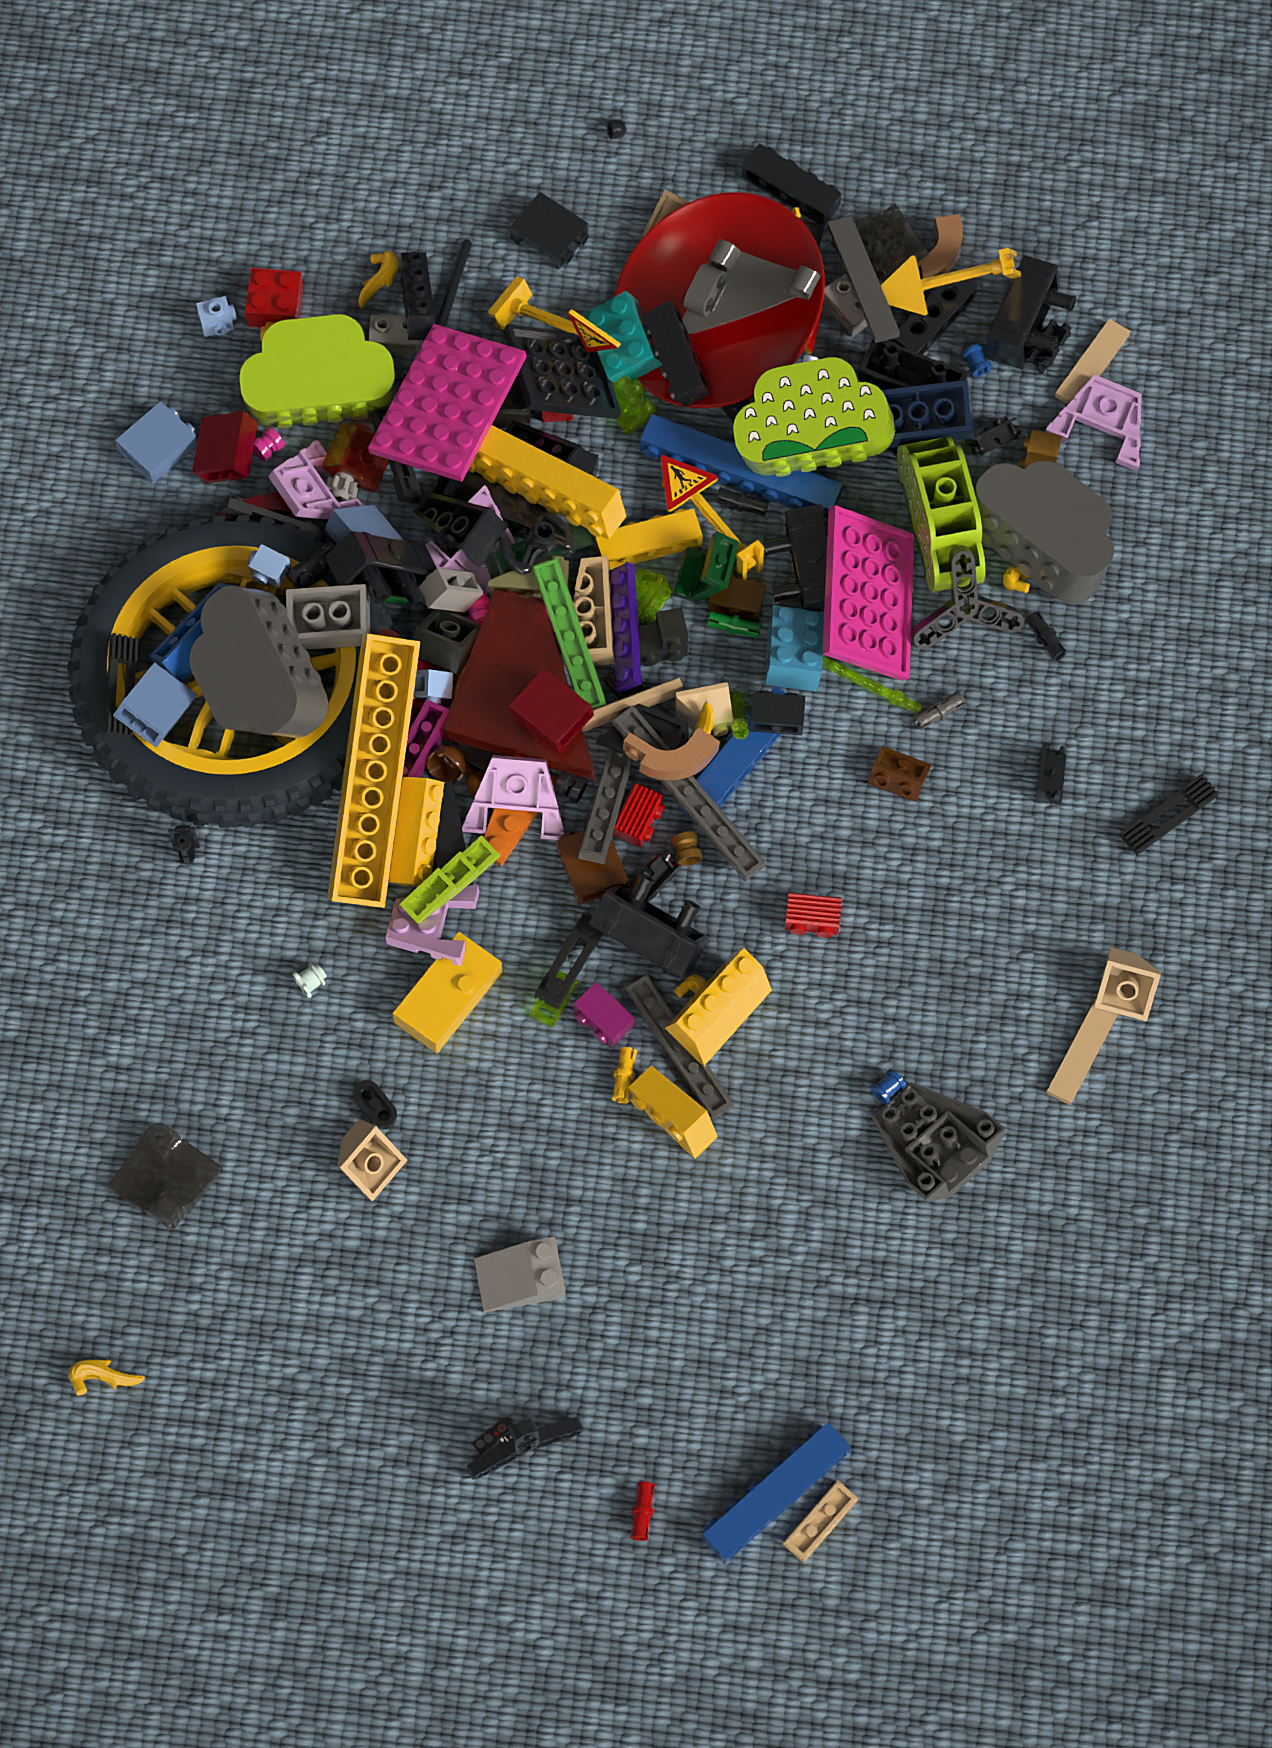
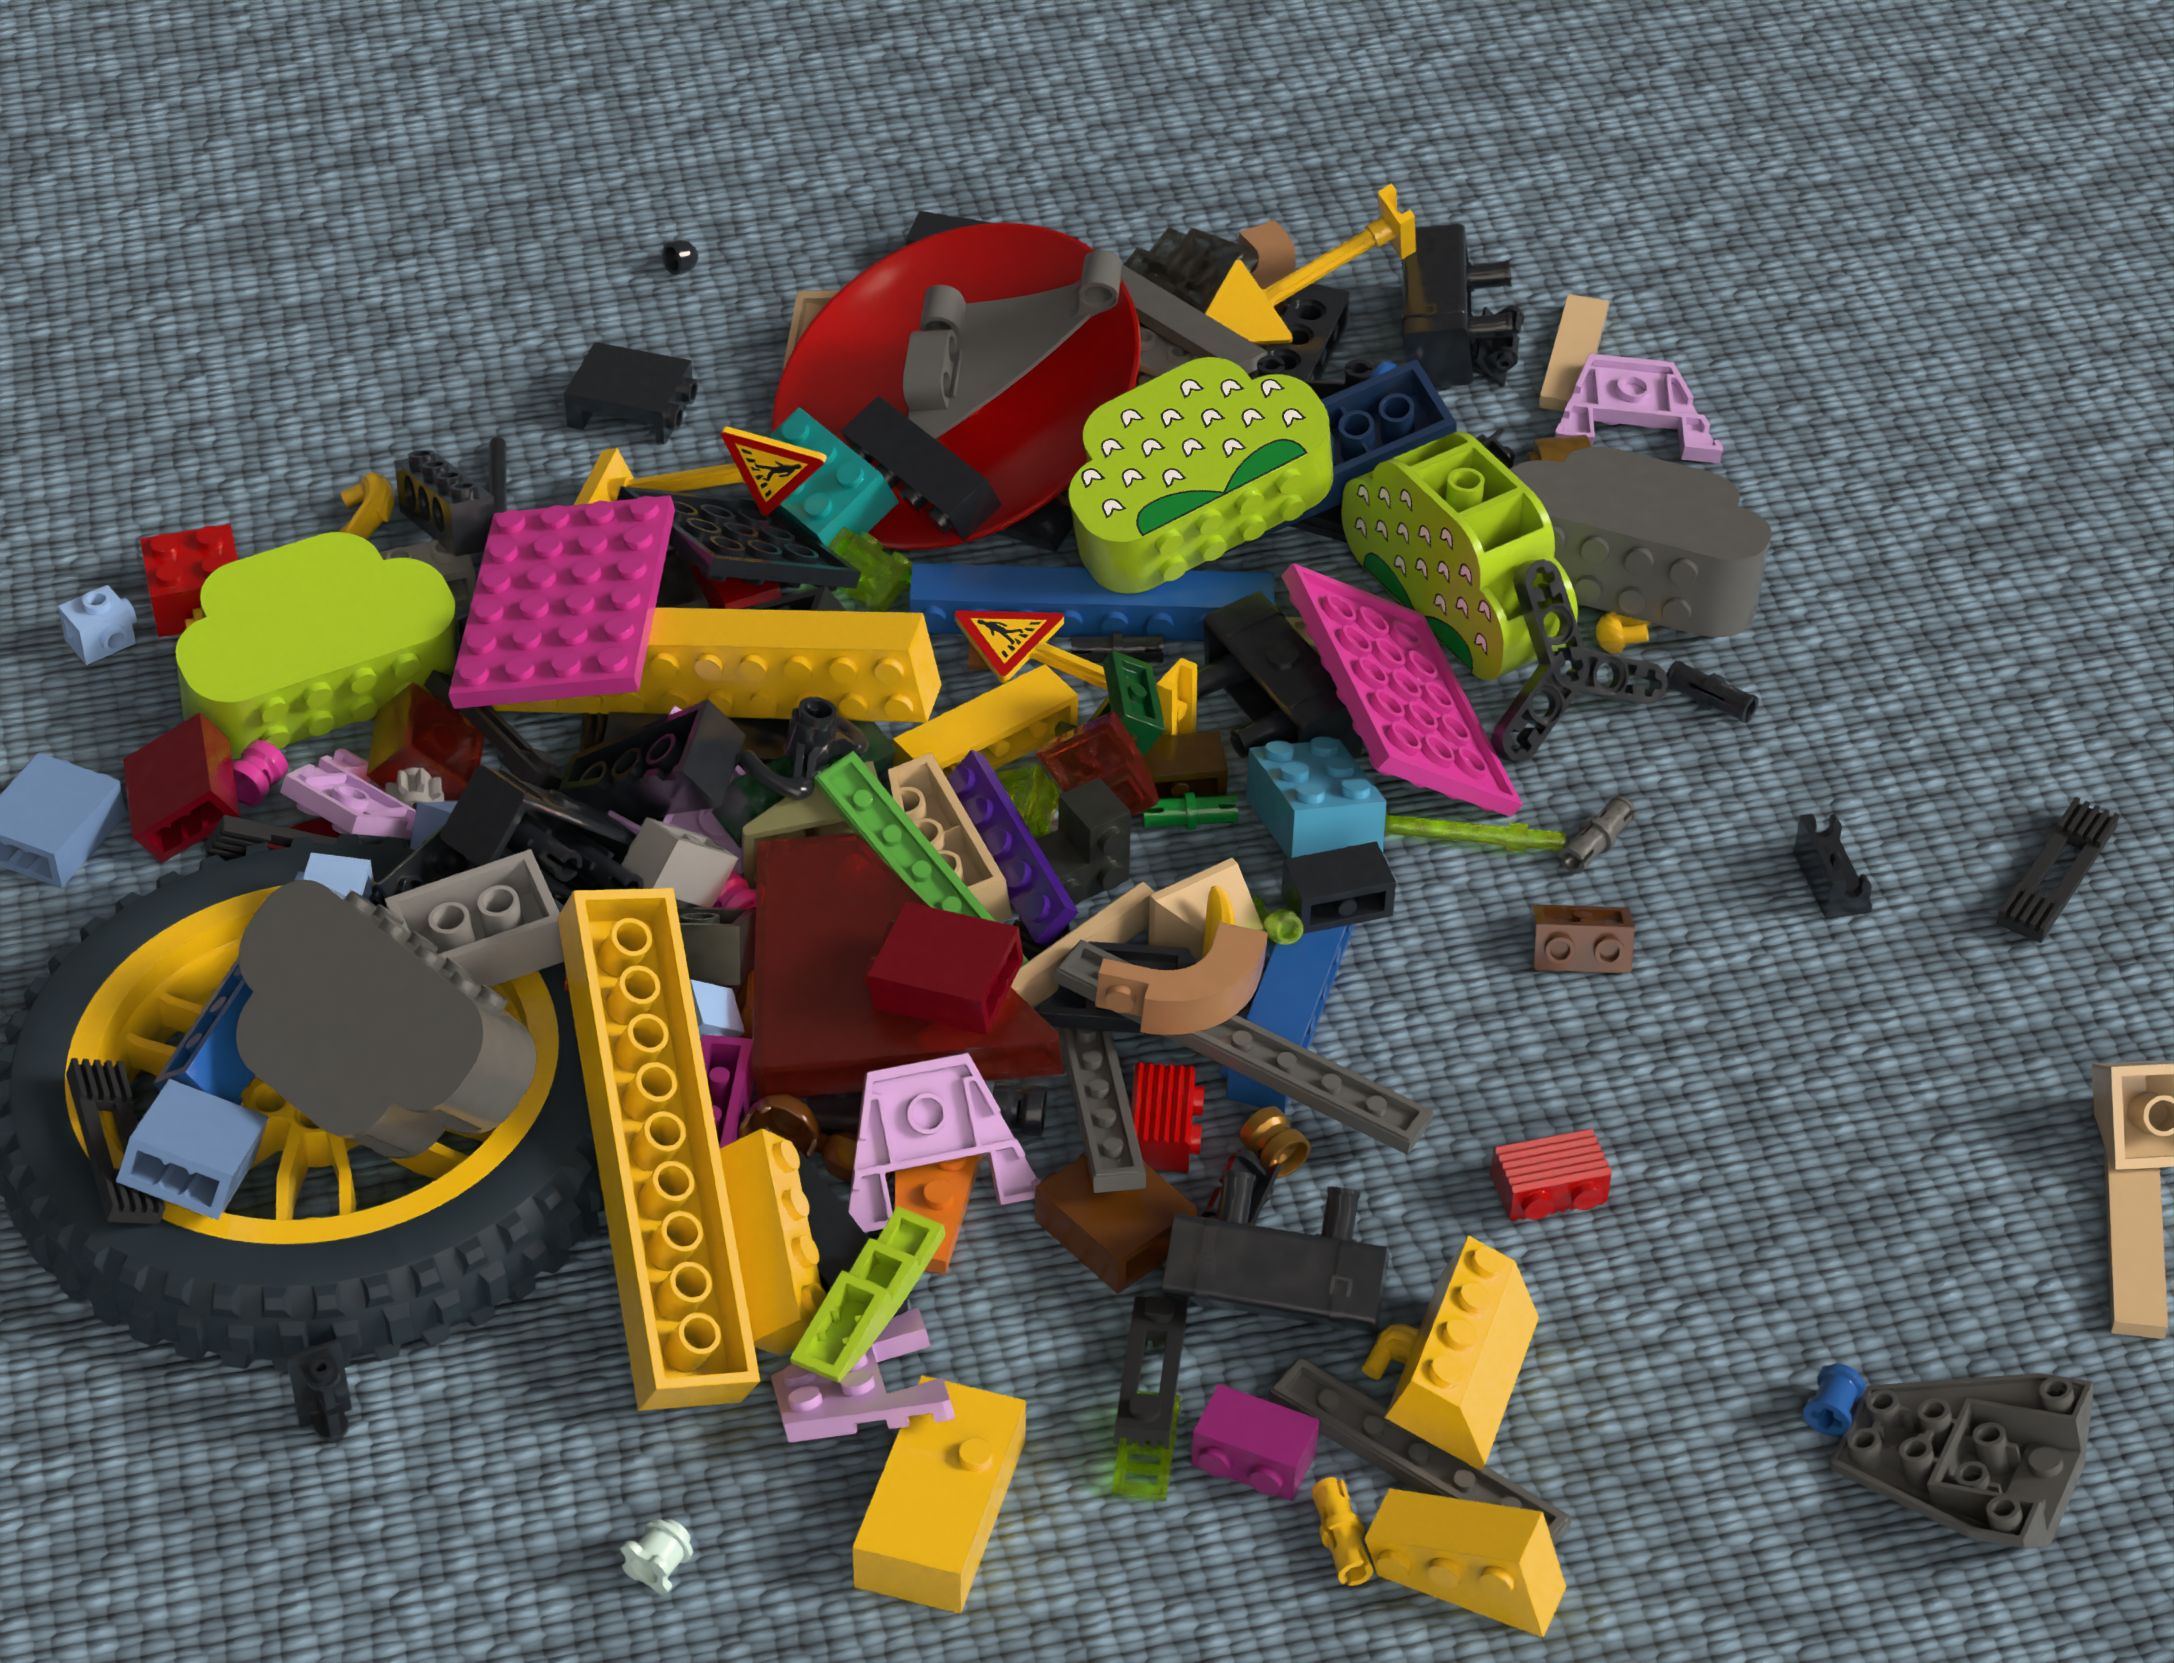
camera: 20 degrees left, 25 degrees down
(690, 593) = (1103, 751): none -> clear red slope

